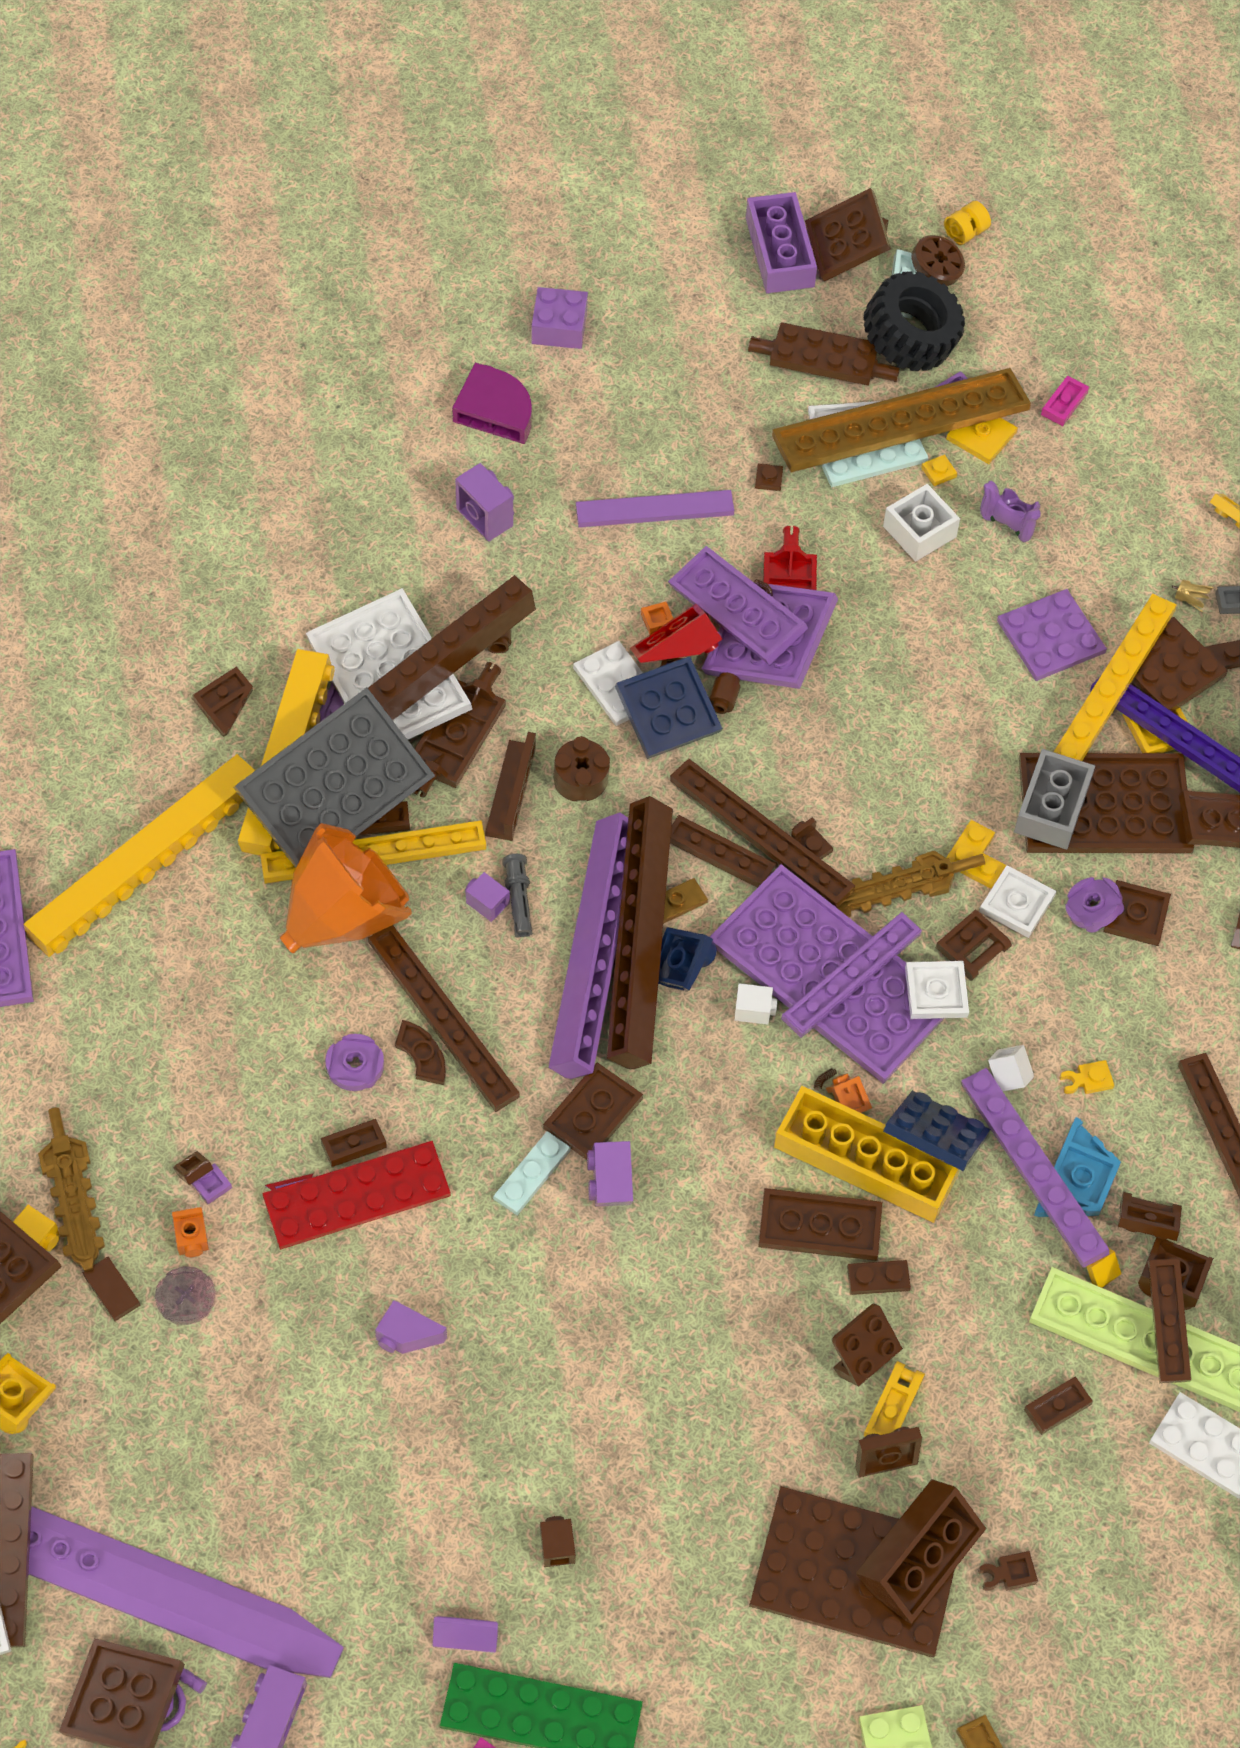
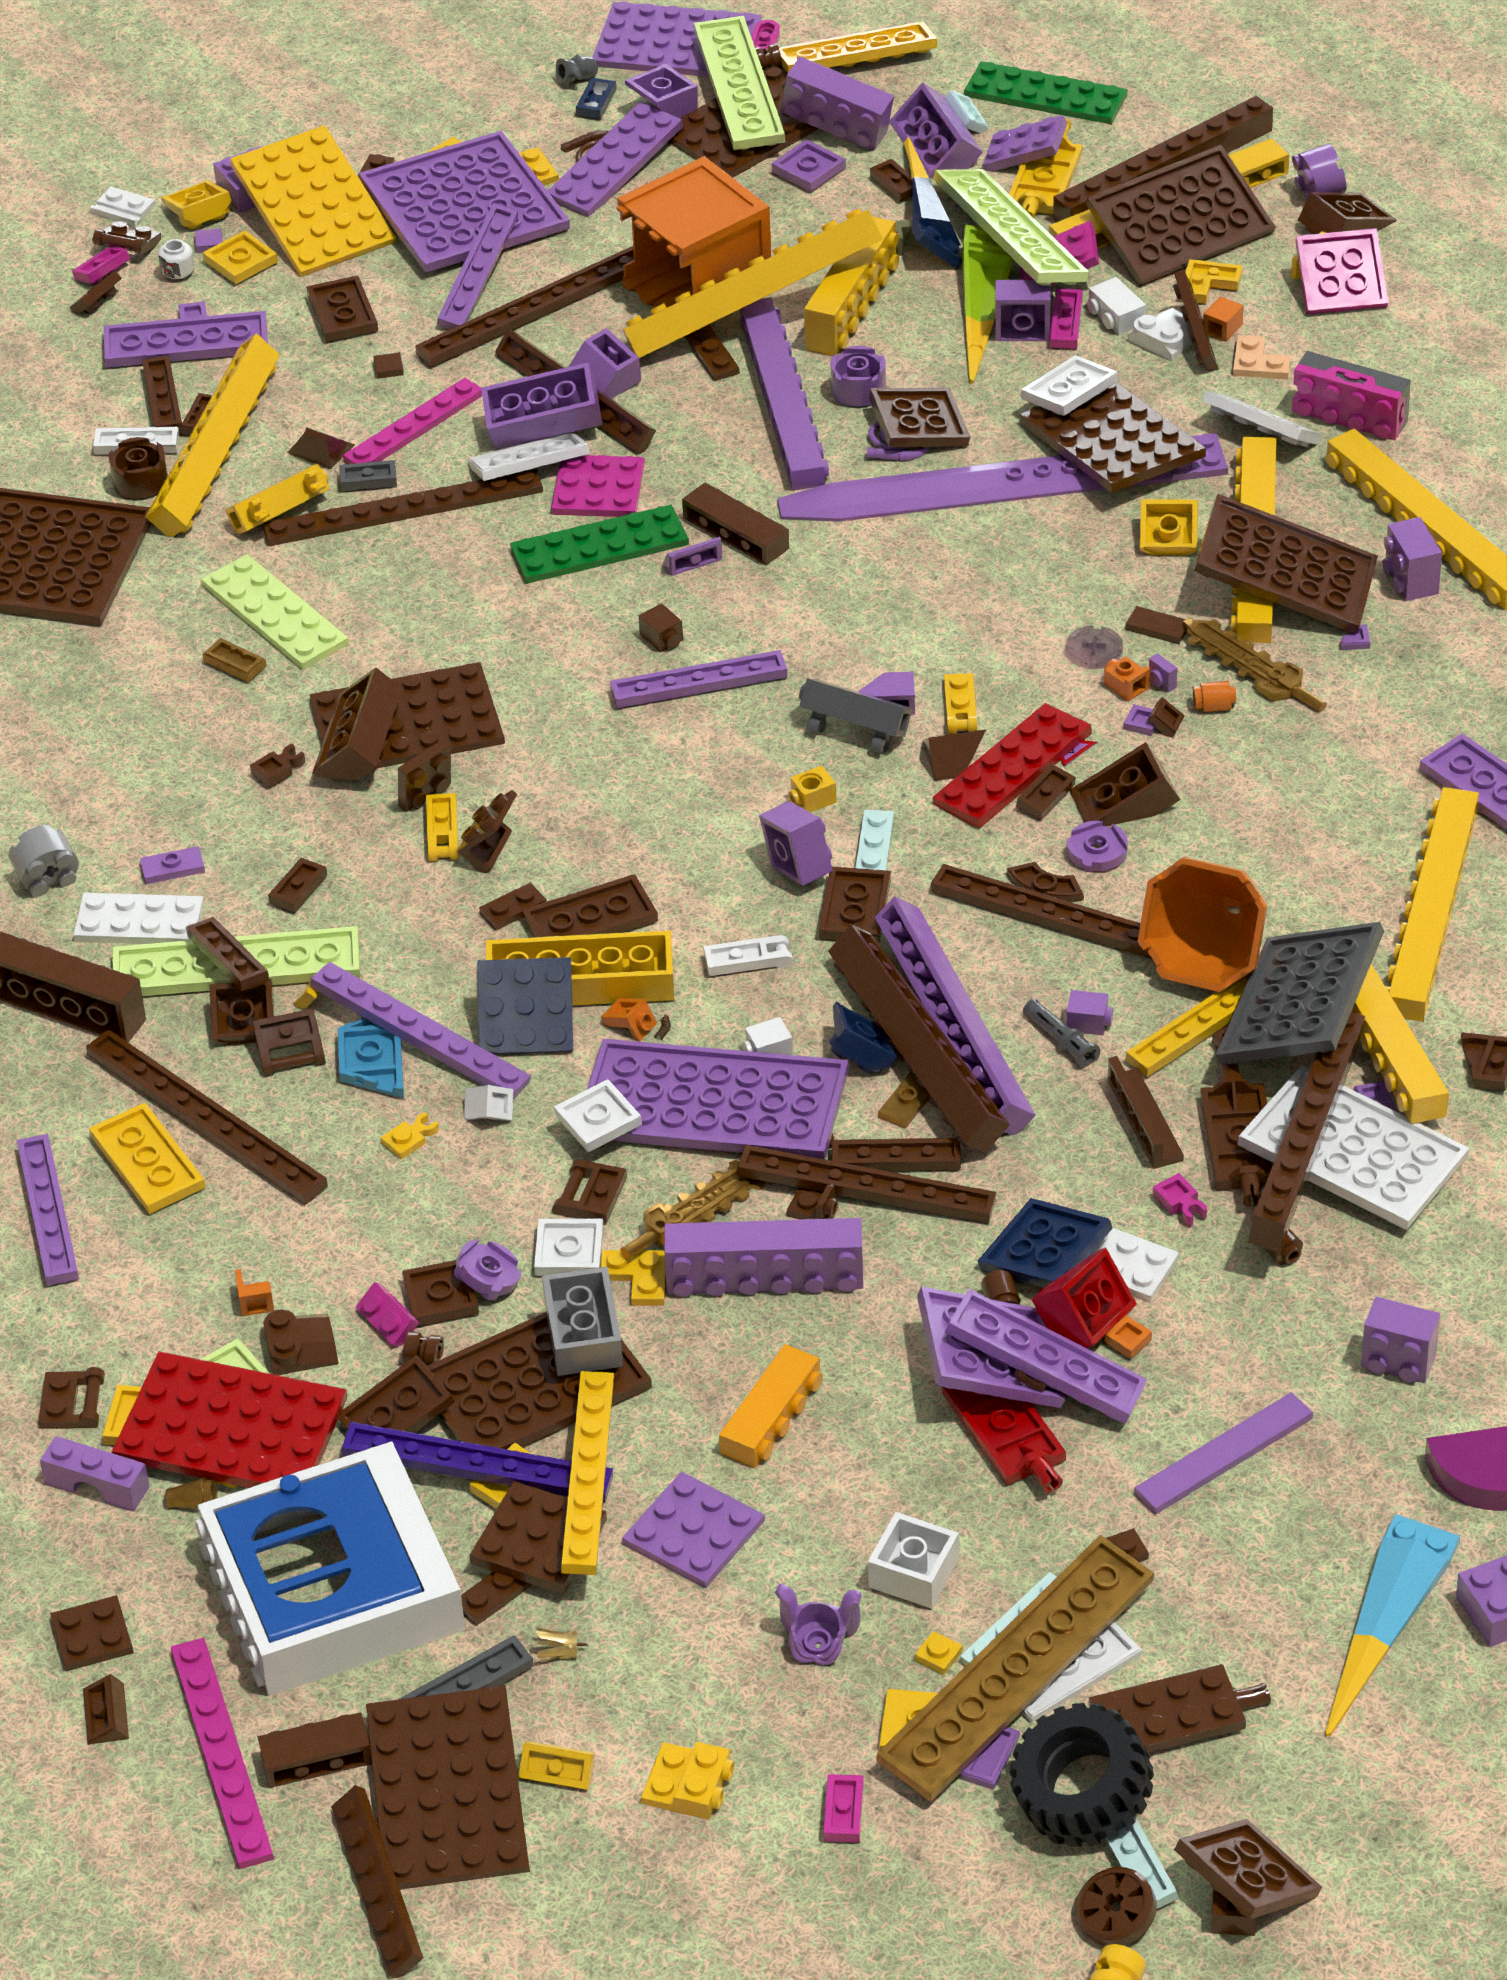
camera: 155 degrees right, 15 degrees down
(135, 1166) = (1214, 696): none -> orange brick
(159, 1217) = (1162, 673): none -> medium lavender plate
(289, 1102) = (1126, 789): none -> reddish brown slope
(349, 1294) = (960, 702): none -> yellow plate
(398, 1237) = (951, 753): none -> reddish brown slope
(398, 1650) = (735, 523): none -> reddish brown brick
(457, 1311) = (854, 707): none -> dark grey brick
(539, 706) = (1179, 1195): none -> dark pink plate
(543, 1243) = (813, 789): none -> yellow brick
(561, 1458) = (698, 679): none -> medium lavender plate
(581, 770) = (1086, 1150): reddish brown brick -> none
(605, 371) = (1404, 1574): none -> medium azure plate
(714, 1107) = (748, 955): none -> white plate
(781, 242) = (1323, 1823): medium lavender brick -> none
(851, 974) = (689, 1095): medium lavender tile -> none
(883, 794) = (764, 1256): none -> medium lavender brick
(945, 689) = (770, 1406): none -> light orange brick
(1153, 466) = (689, 1779): none -> yellow plate
(1160, 1502) = (172, 865): none -> medium lavender plate
(1175, 866) = (426, 1348): none -> reddish brown wheel
(1188, 911) = (386, 1314): none -> dark pink plate

